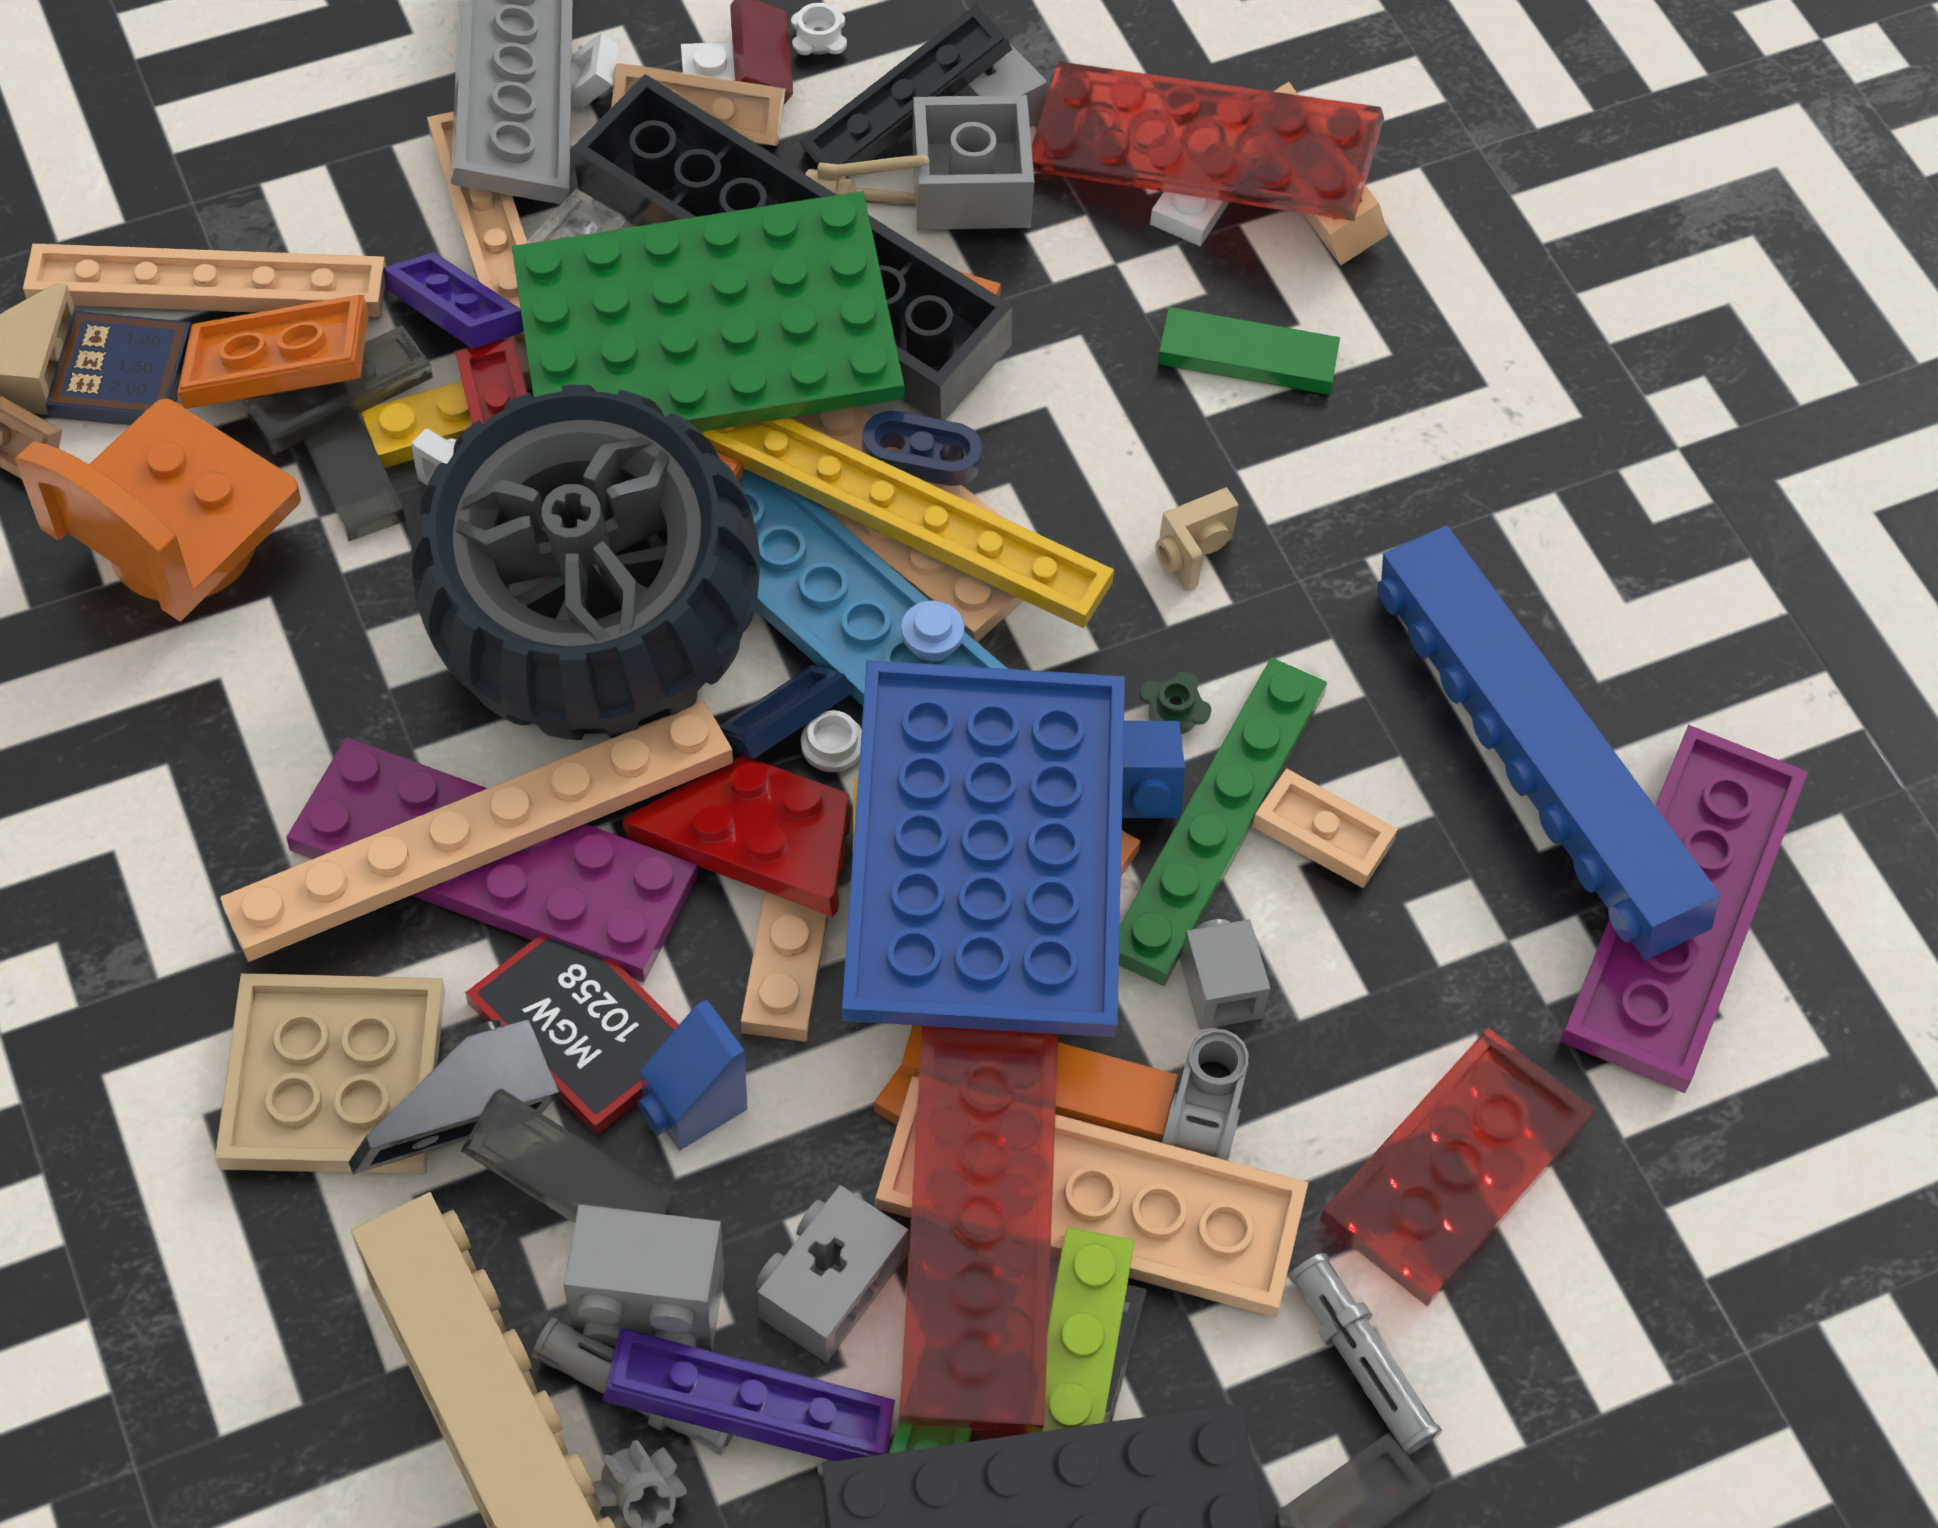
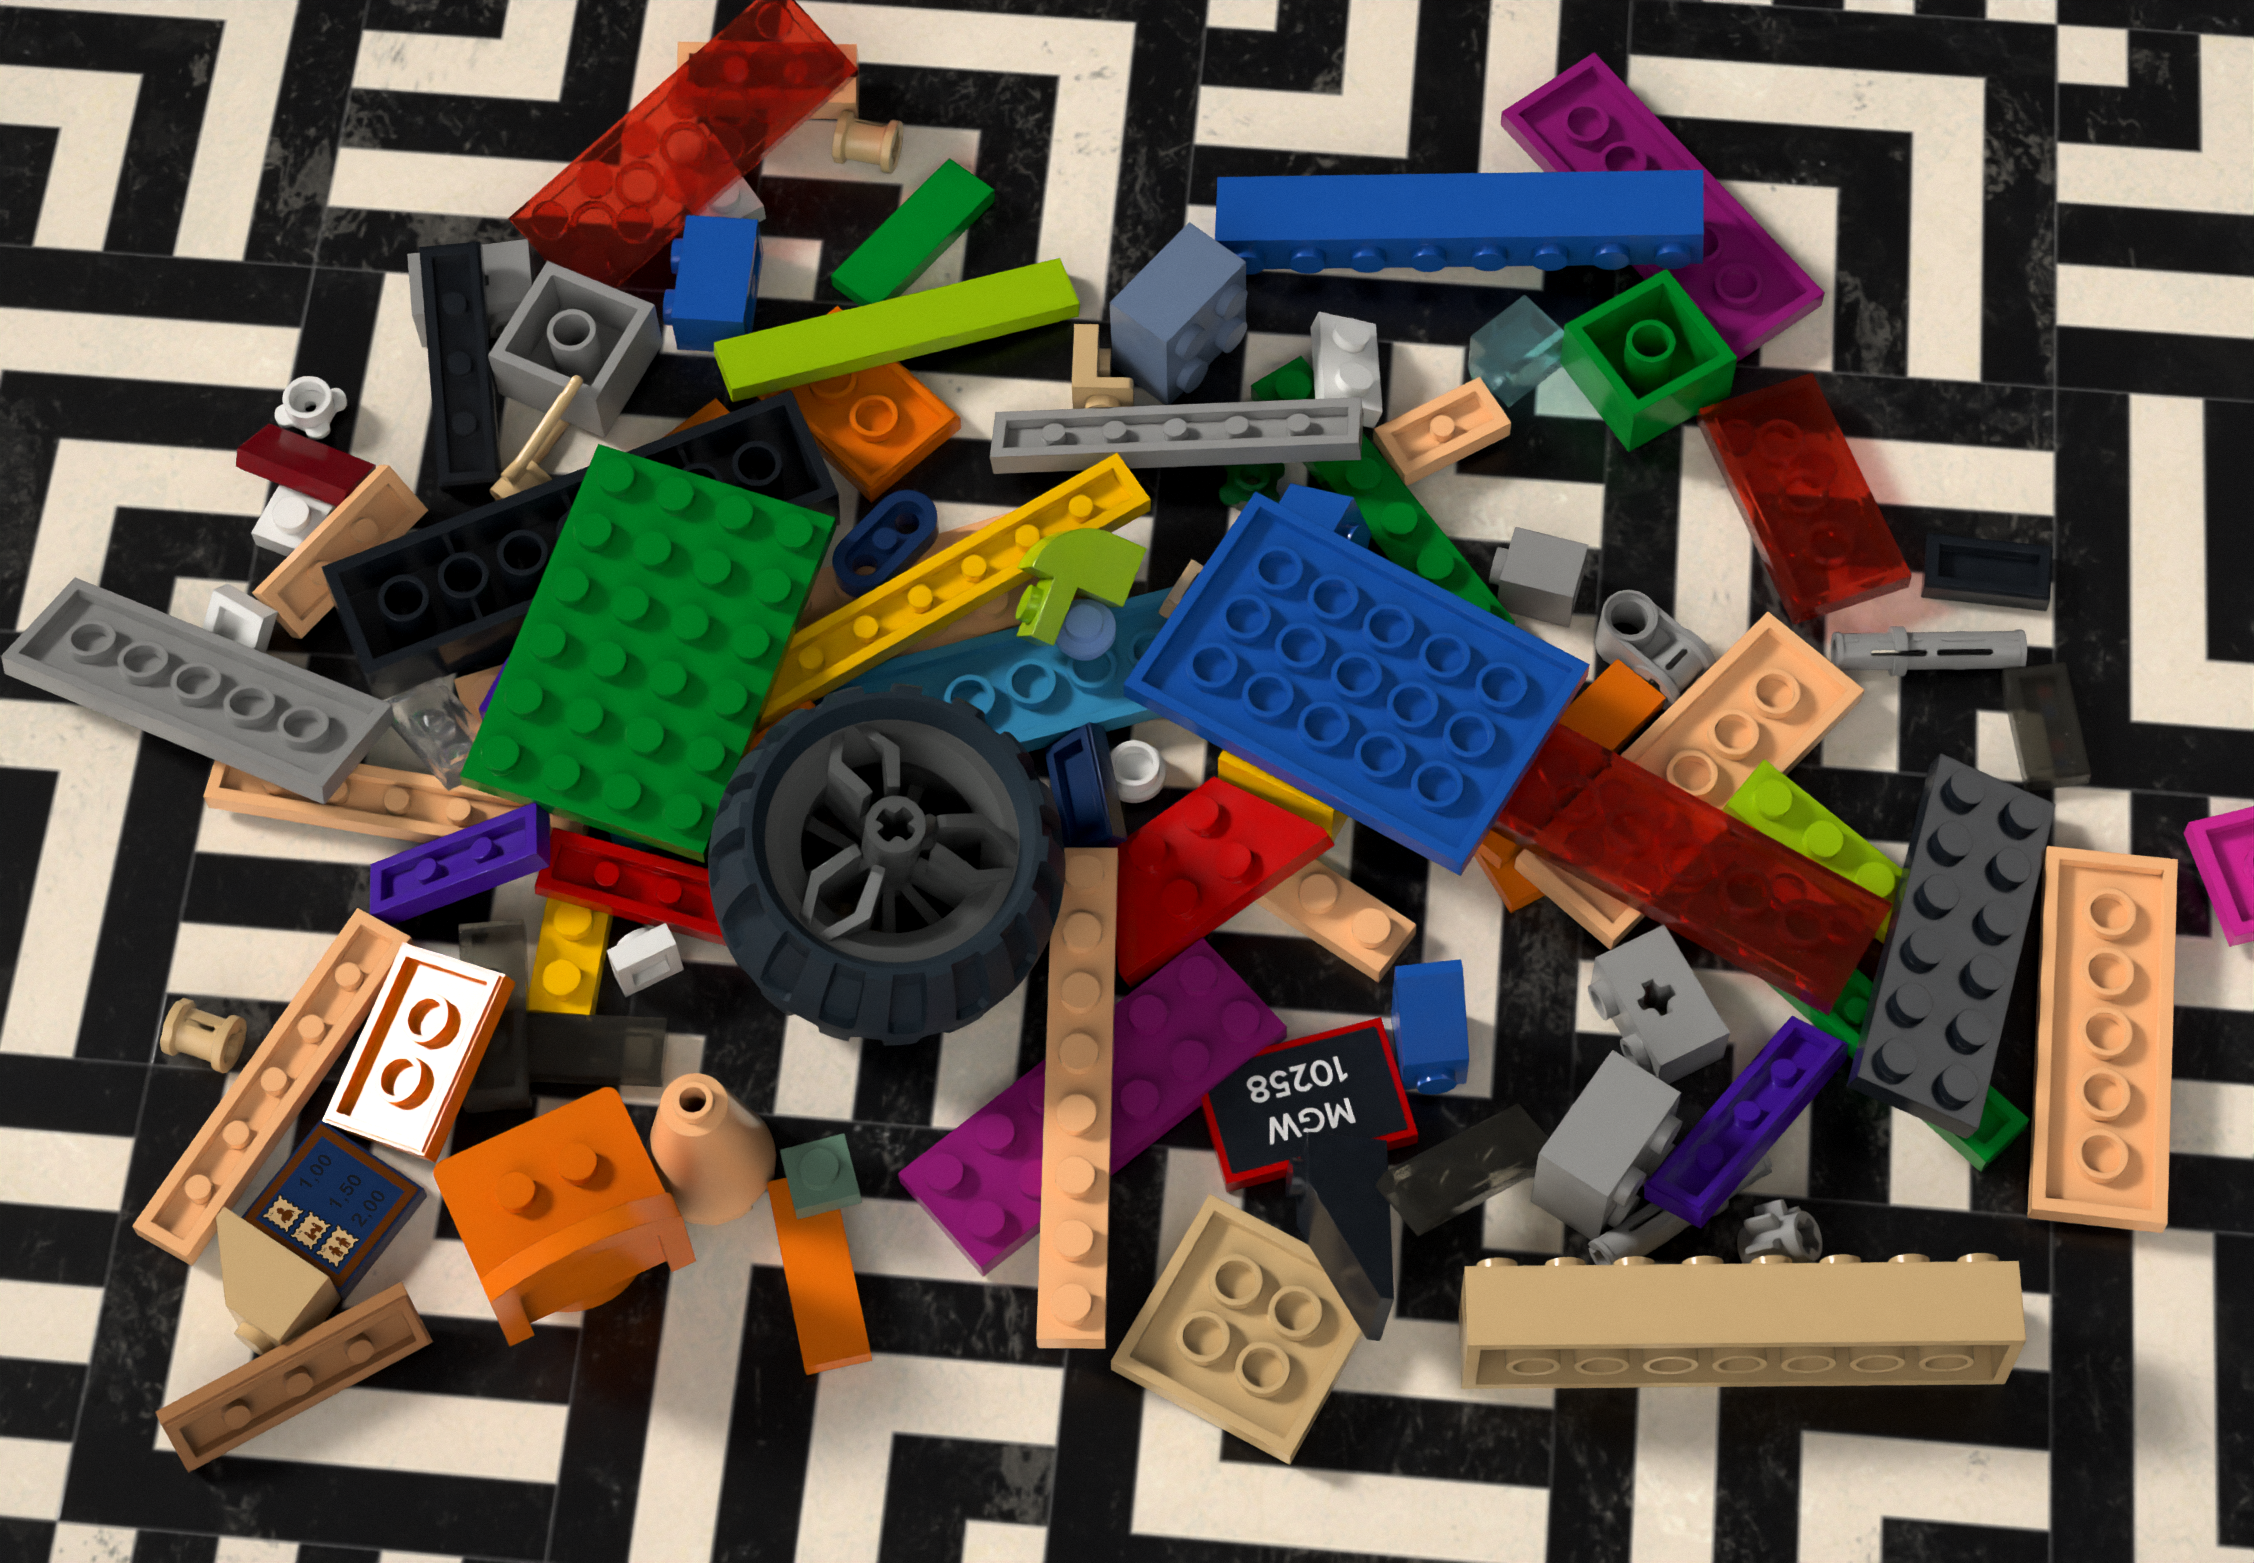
camera: 55 degrees left, 5 degrees up
(218, 215) = (203, 1035): none -> tan bush
(230, 724) = (820, 1285): none -> orange tile
(291, 582) = (710, 1150): none -> light nougat cone
(308, 678) = (820, 1176): none -> sand green plate
(980, 583) = (1072, 563): none -> lime brick
(1062, 383) = (874, 423): none -> orange tile
(1103, 232) = (715, 281): none -> blue brick
(1146, 373) = (896, 329): none -> lime tile
(1176, 621) = (1178, 435): none -> light grey plate
(1289, 559) = (1179, 315): none -> sand blue brick
(1314, 275) = (867, 141): none -> tan bush
(1332, 720) = (1347, 362): none -> white plate
(1445, 848) = (1516, 351): none -> clear light blue brick
(1492, 1374) = (1987, 572): none -> black tile
(1505, 956) = (1647, 359): none -> green brick

